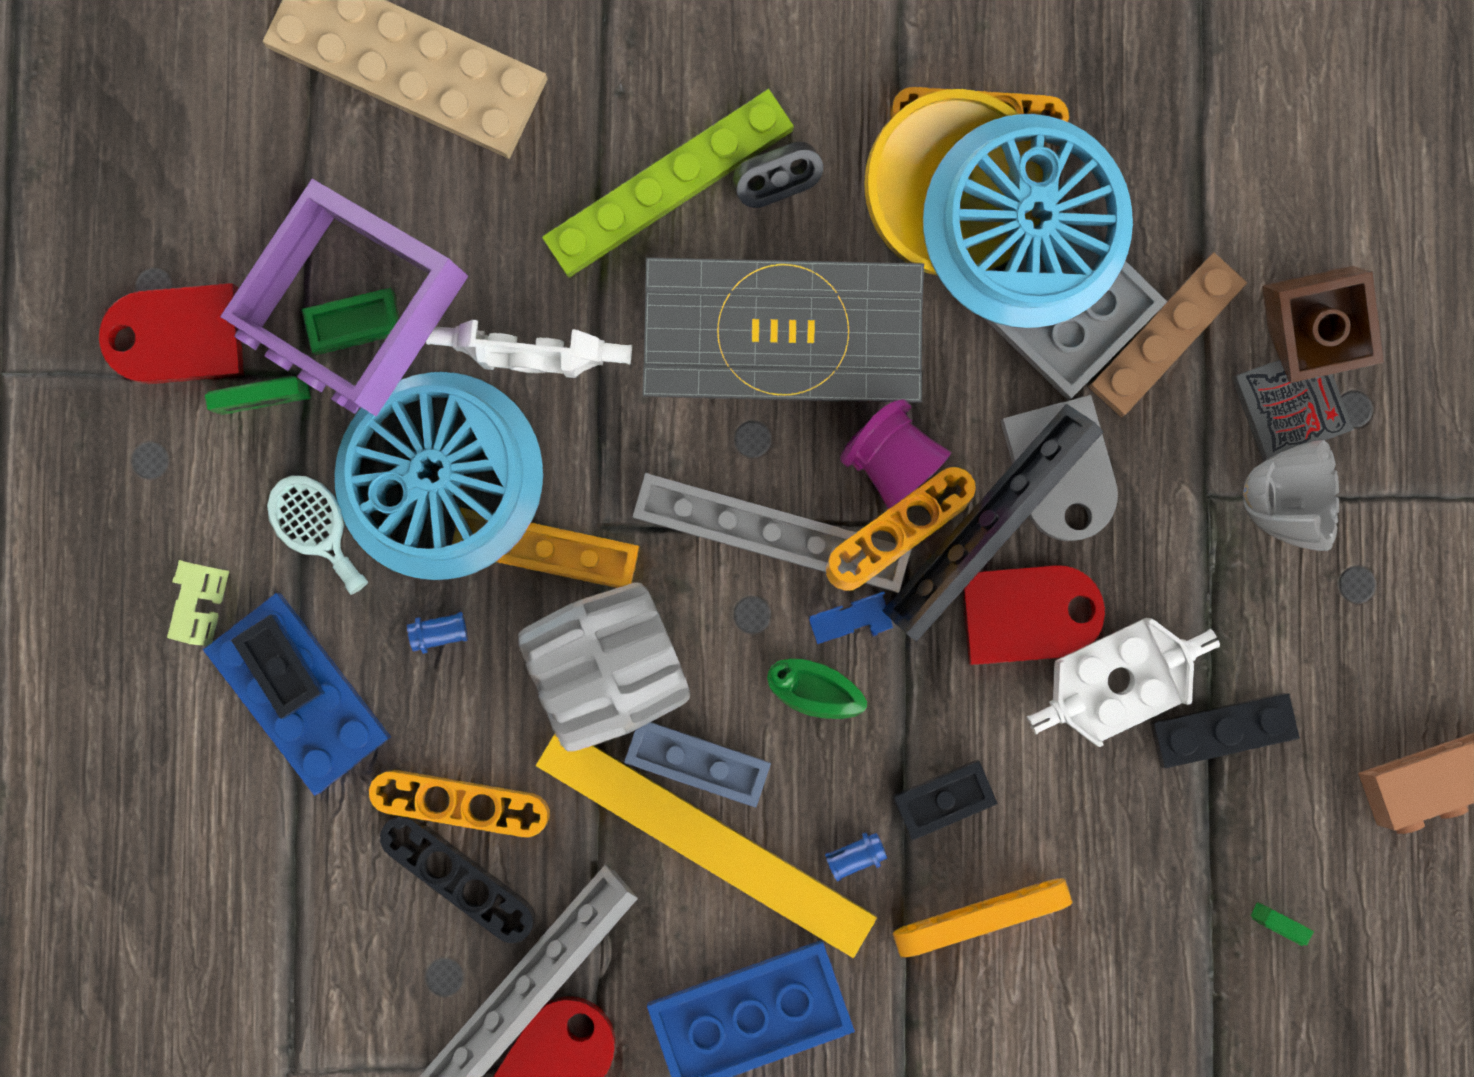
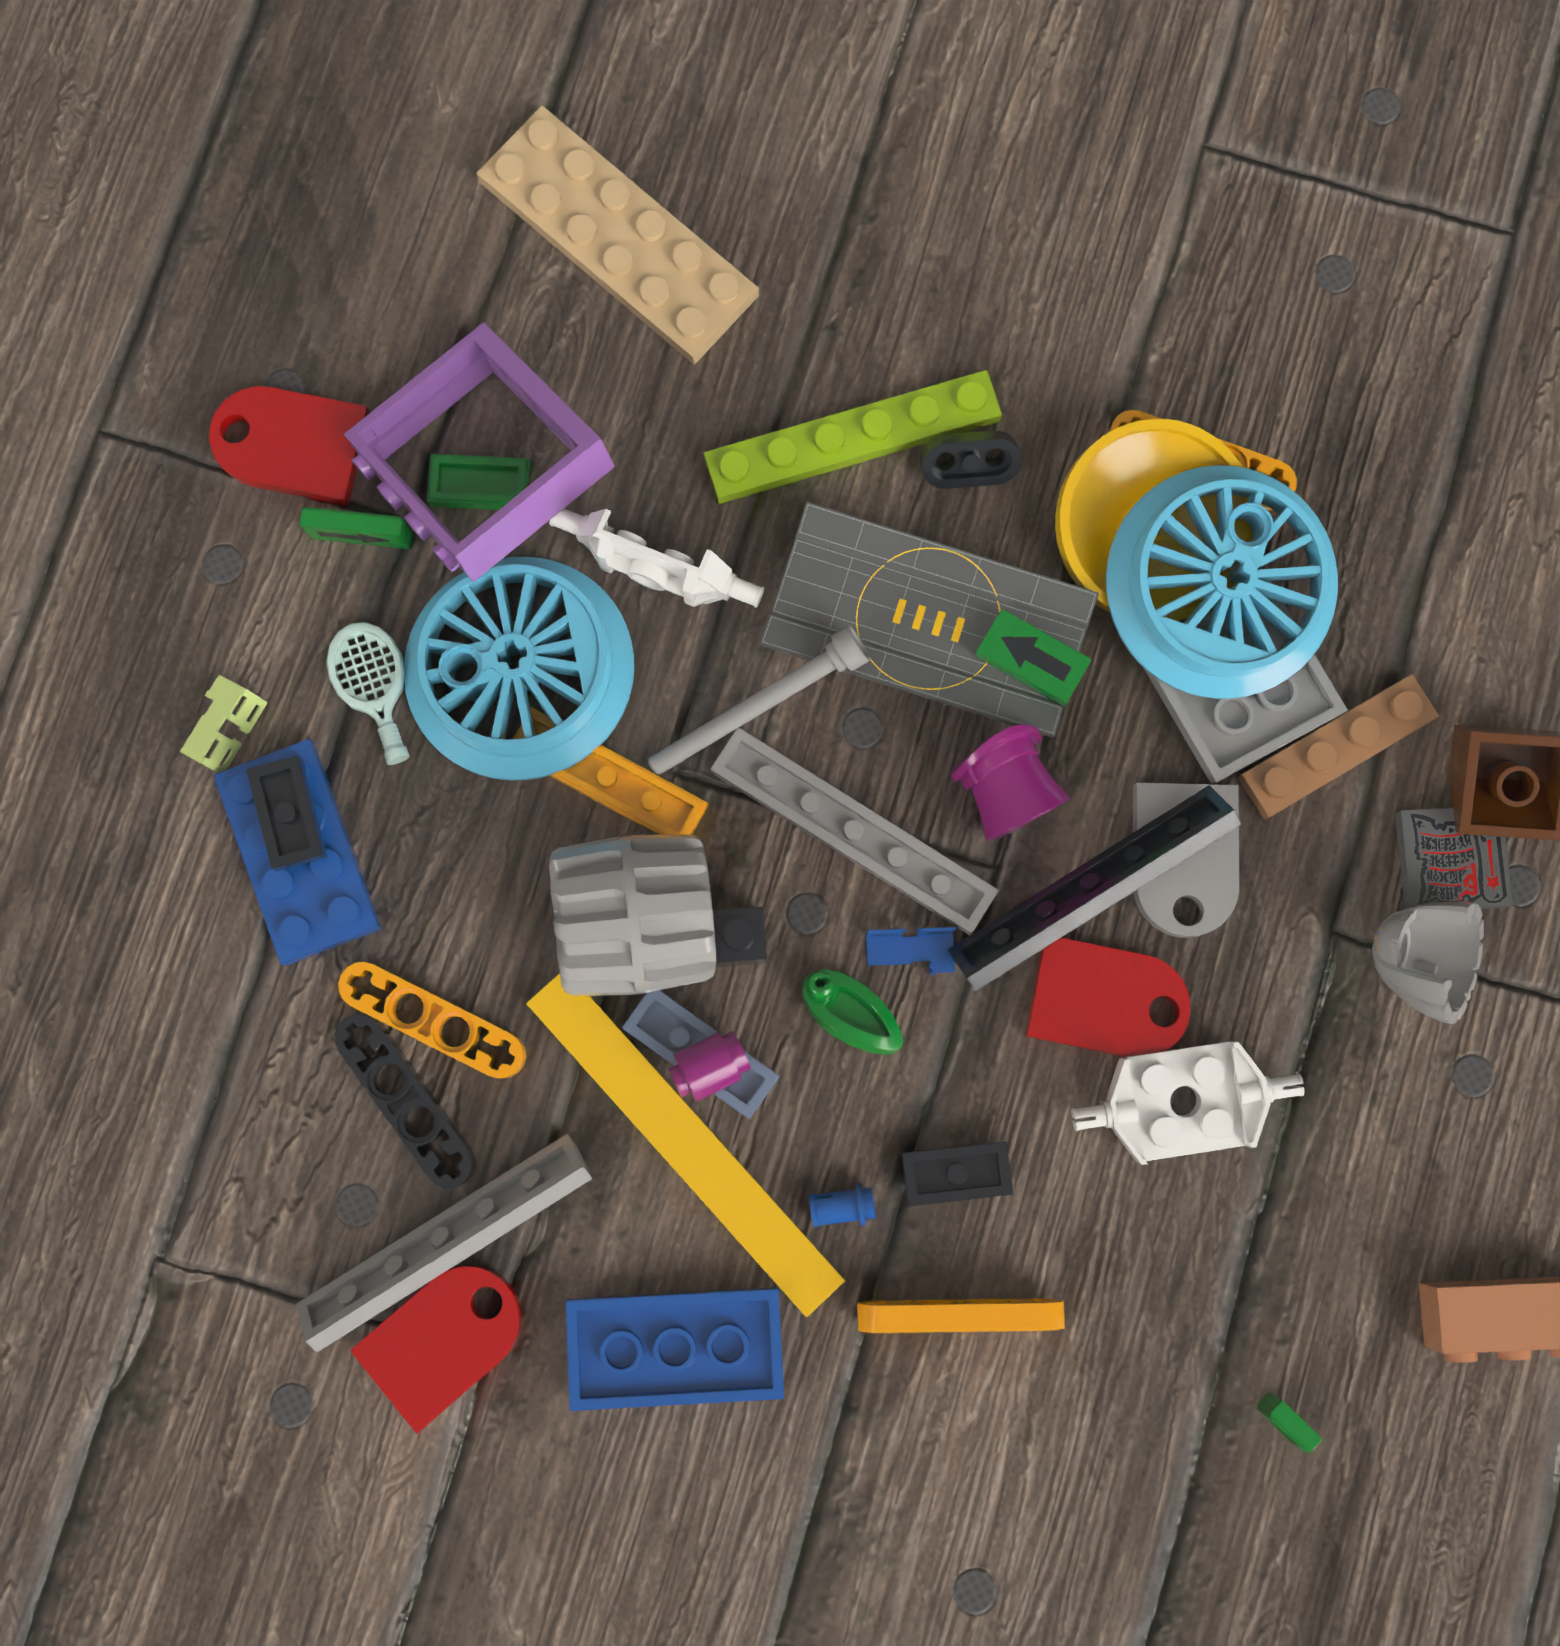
camera: 15 degrees right, 5 degrees down
(436, 632) = (465, 830): blue pin -> none
(701, 655) = (739, 936): none -> black brick
(708, 774) = (709, 1066): none -> magenta brick
(718, 383) = (842, 653): none -> light grey piece
(883, 338) = (1033, 657): none -> green tile
(904, 531) = (991, 859): light orange beam -> none
(1224, 730) = (1284, 1190): black plate -> none

